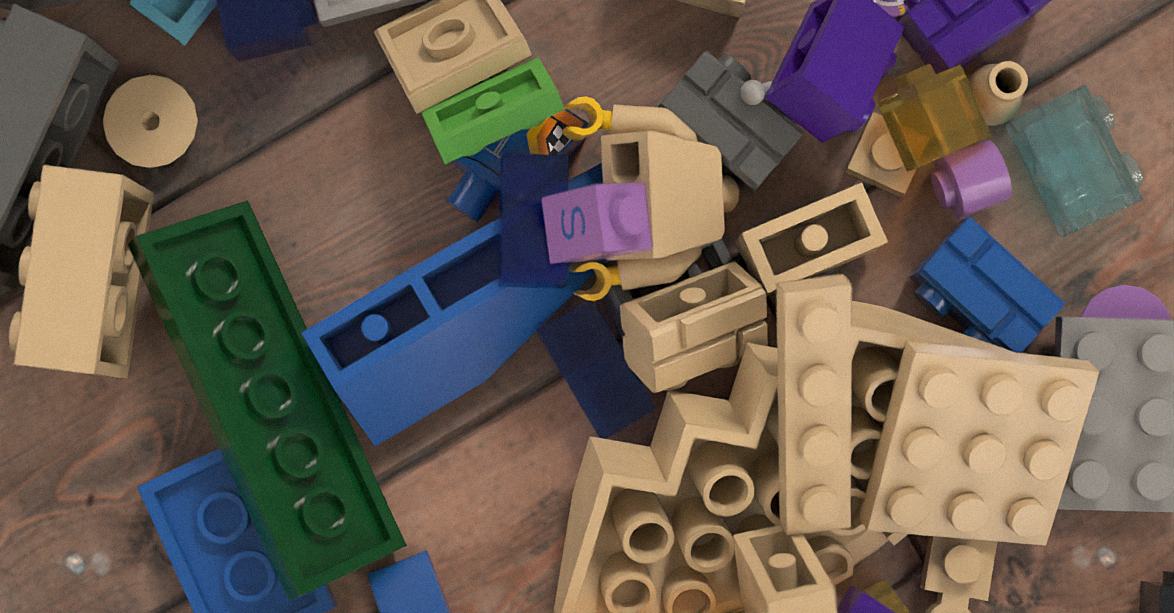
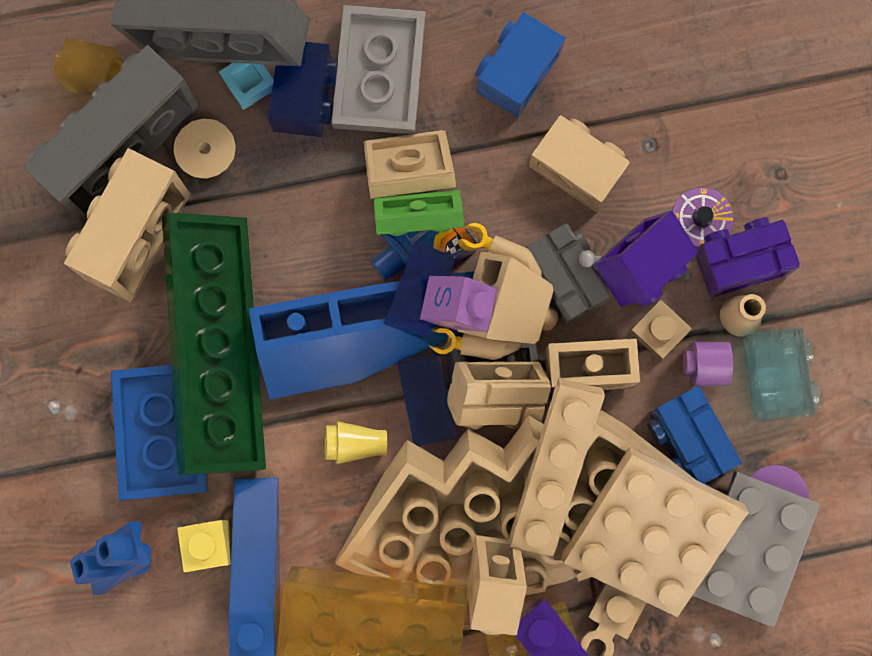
camera: 20 degrees right, 5 degrees down
(514, 465) = (352, 442): none -> light yellow cone
(932, 115) = (697, 313): clear yellow brick -> none

